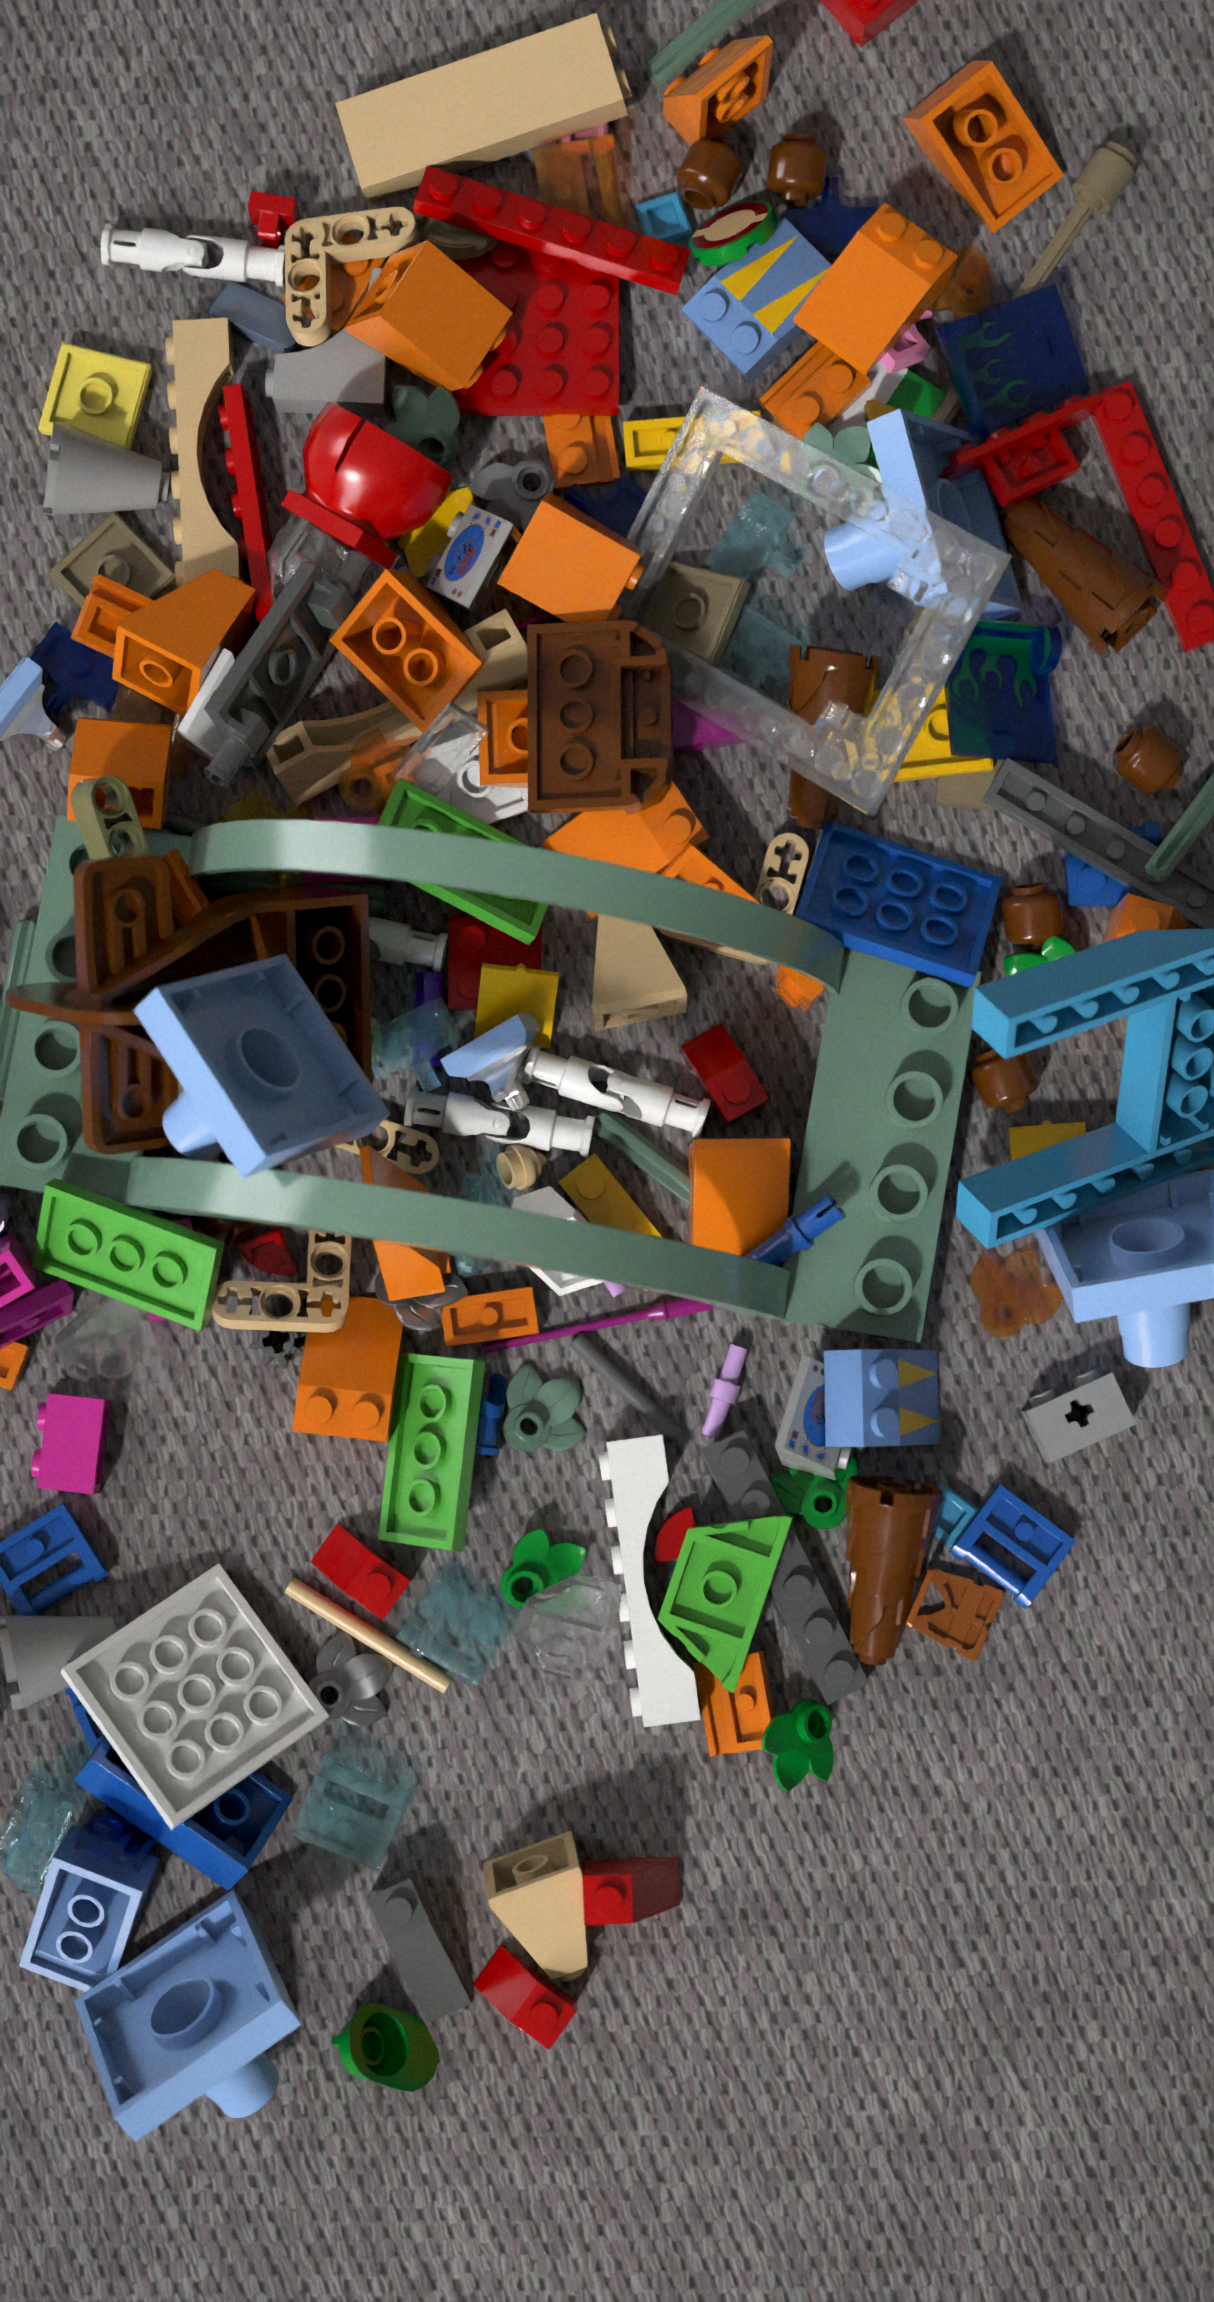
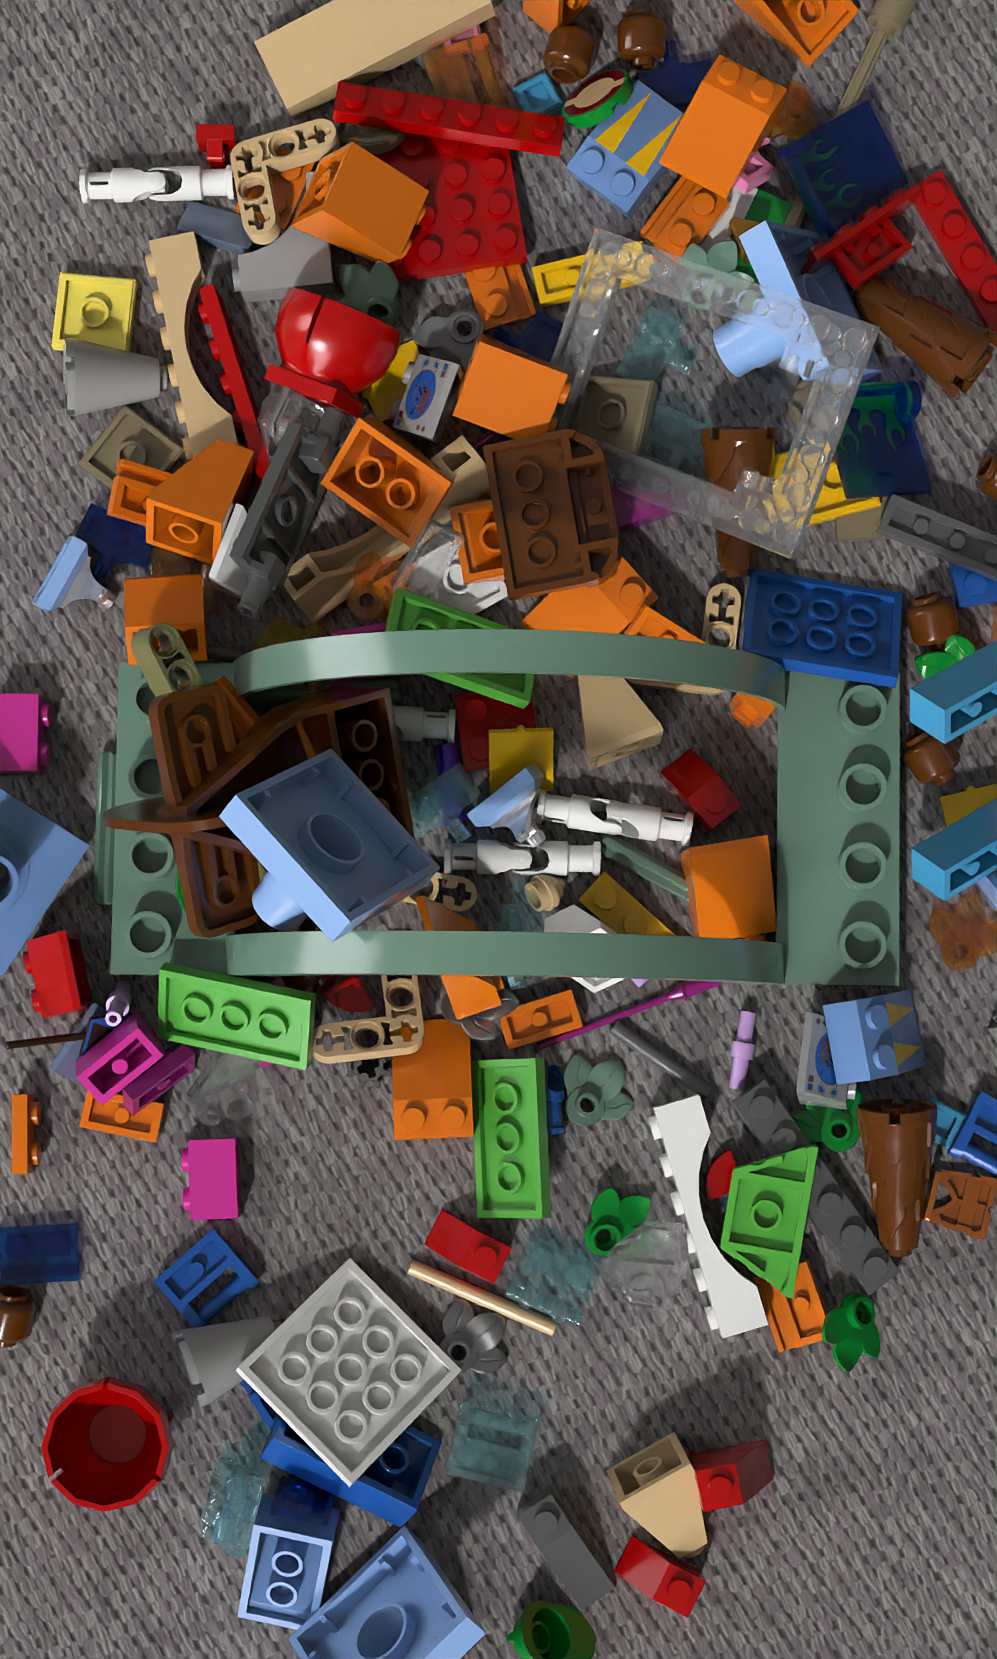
camera: 10 degrees left, 0 degrees up
(799, 1232) = (785, 911): blue pin -> none

